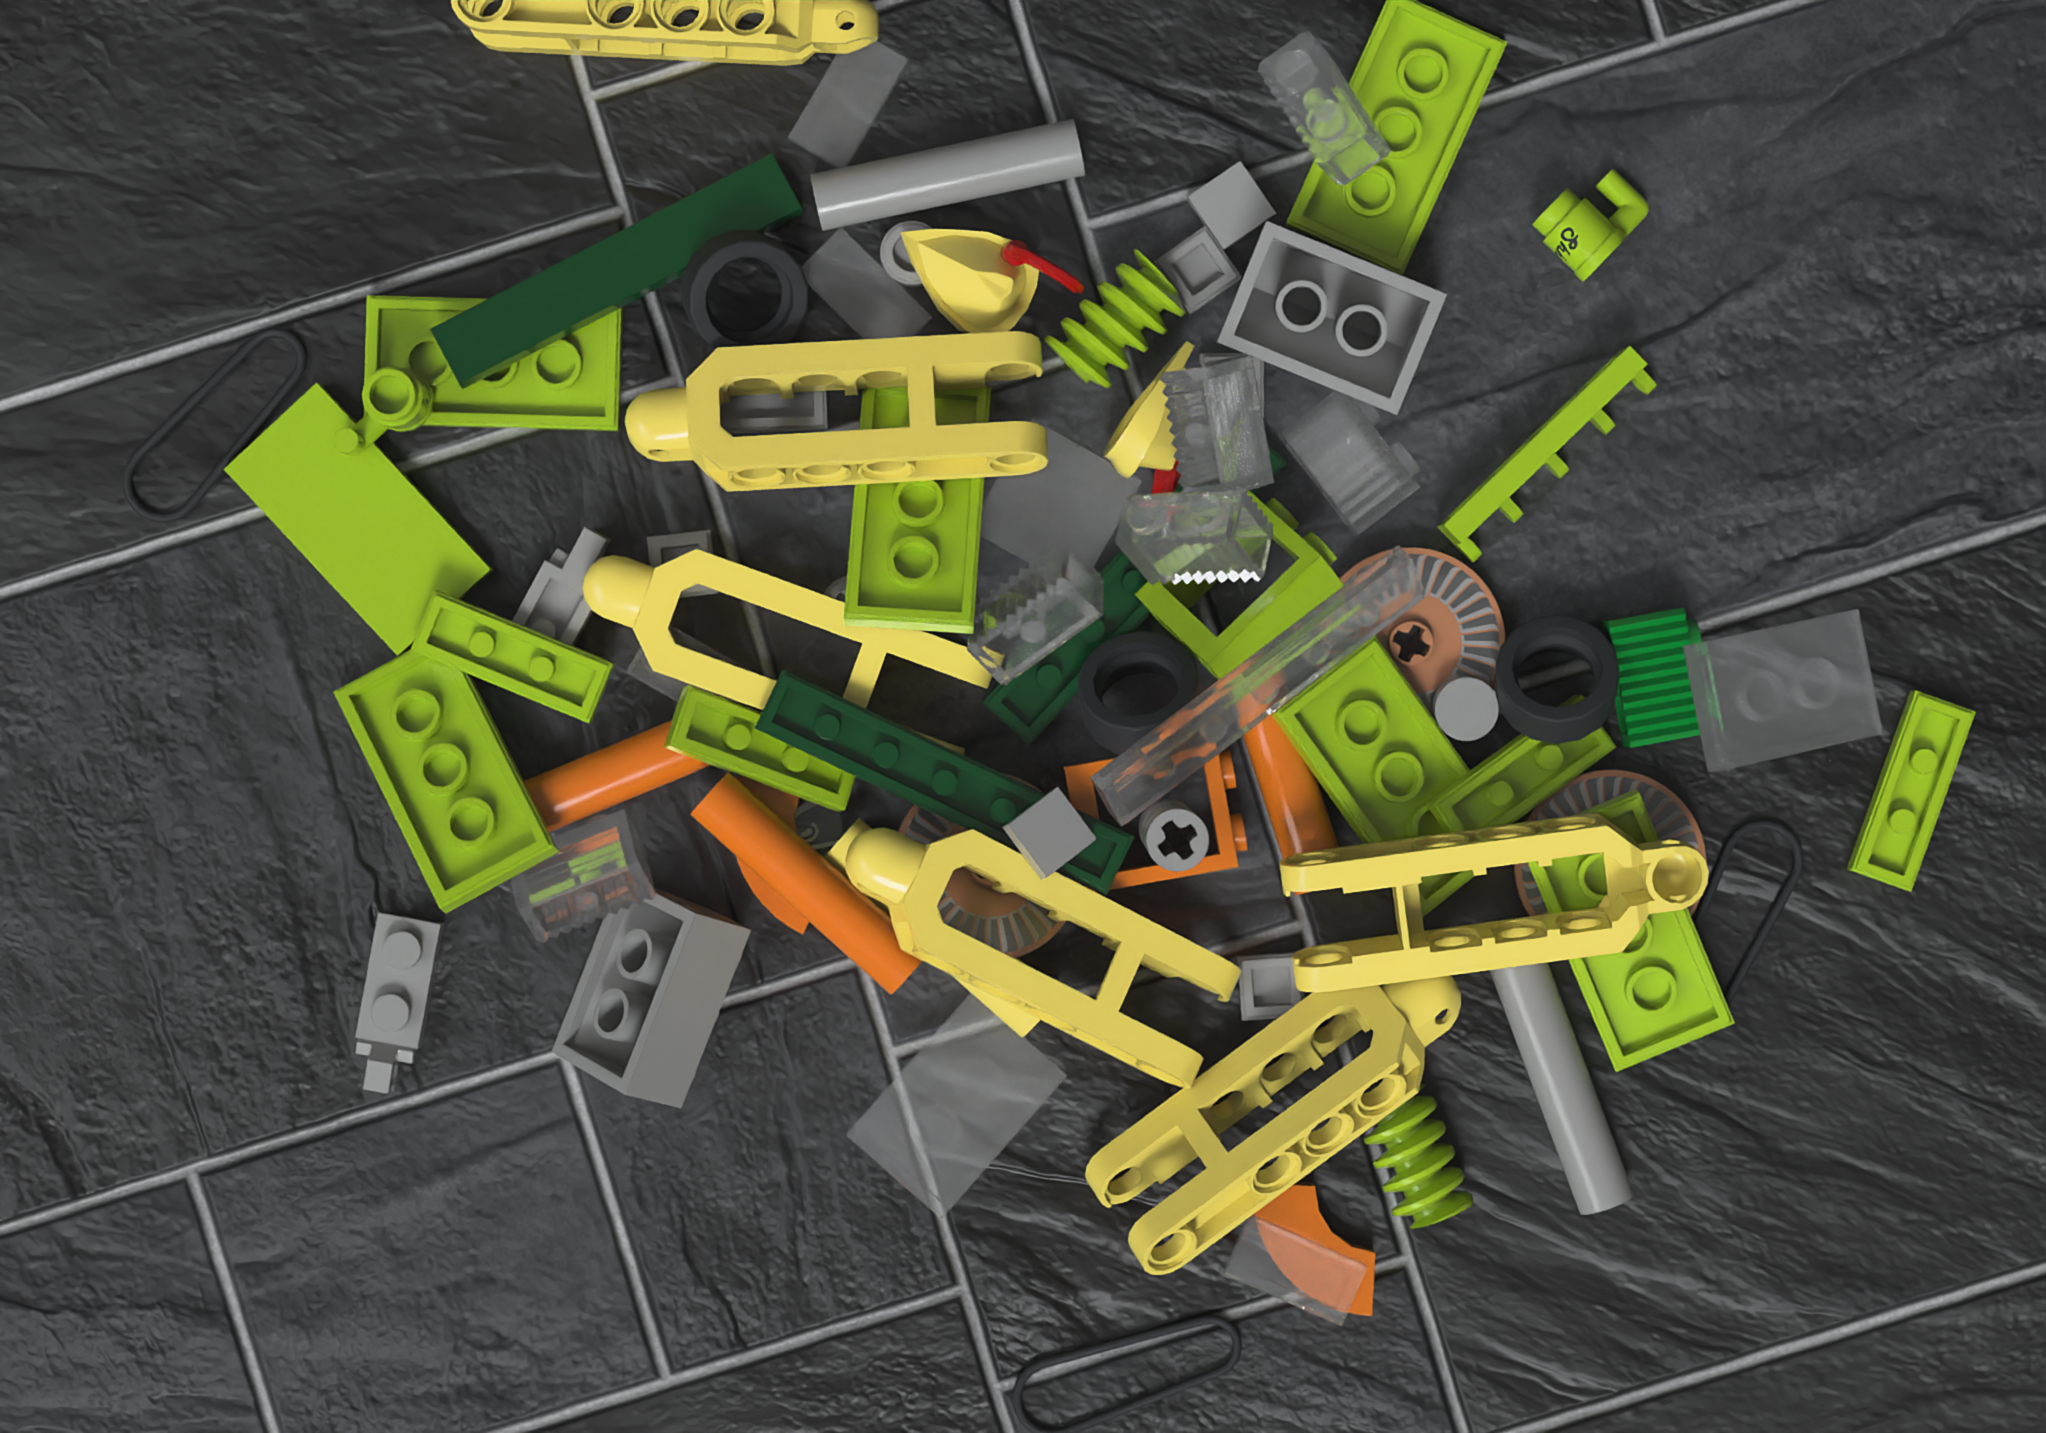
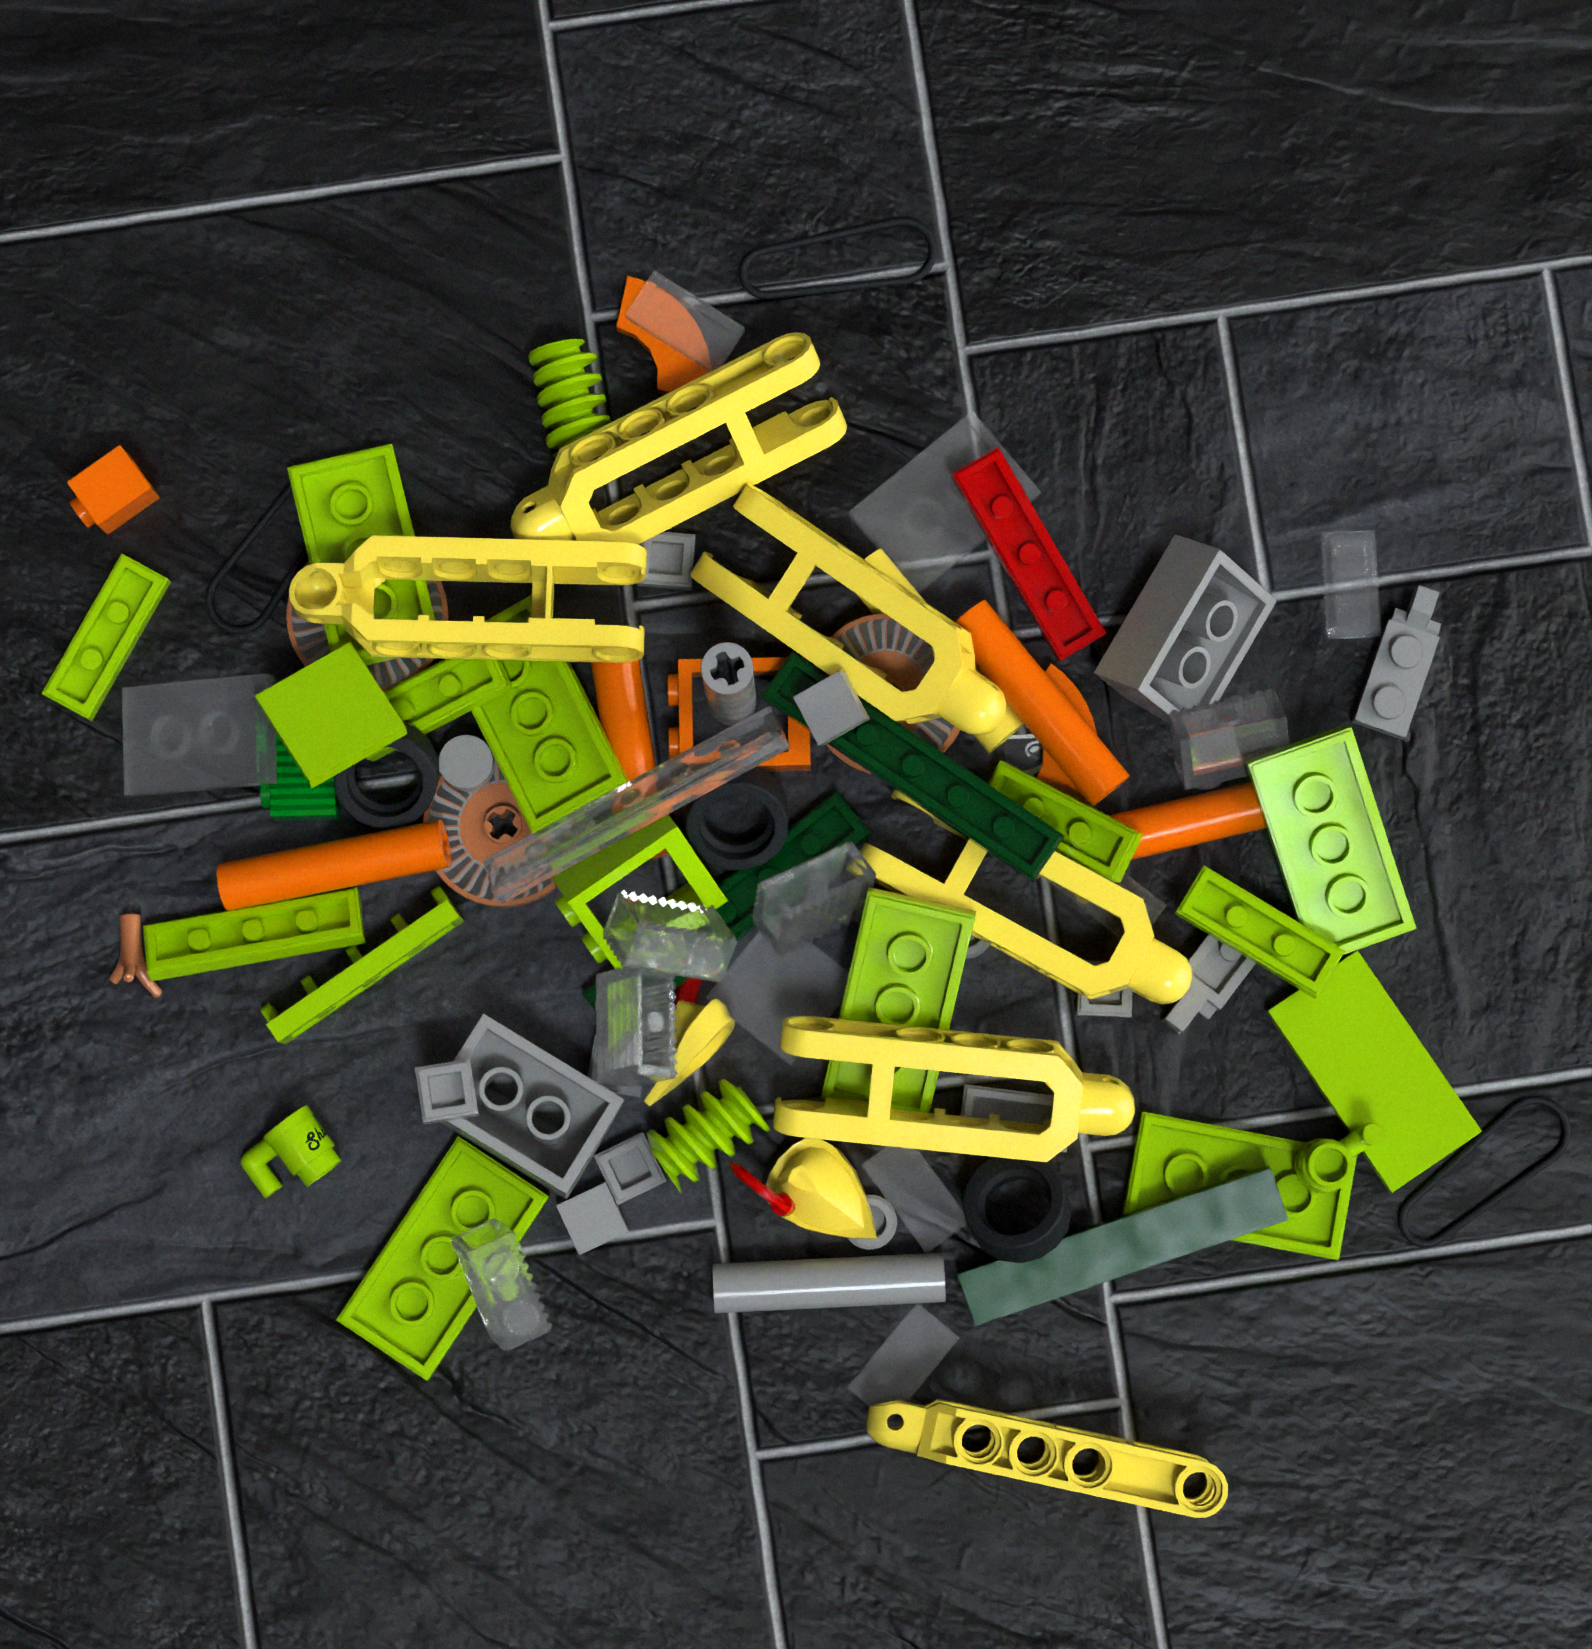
camera: 170 degrees left, 5 degrees down
(468, 1084) = (1350, 584): none -> clear tile
(849, 1058) = (1028, 554): none -> red tile
(1351, 460) = (527, 984): clear brick -> none
(1424, 315) = (446, 1091): none -> light grey tile
(1563, 1087) = (437, 434): light grey piece -> none
(1599, 563) = (333, 865): none -> orange piece
(1634, 732) = (331, 715): none -> lime tile
(1678, 470) = (254, 934): none -> lime tile
(1816, 422) = (131, 955): none -> nougat bar
(1936, 962) = (111, 491): none -> orange brick

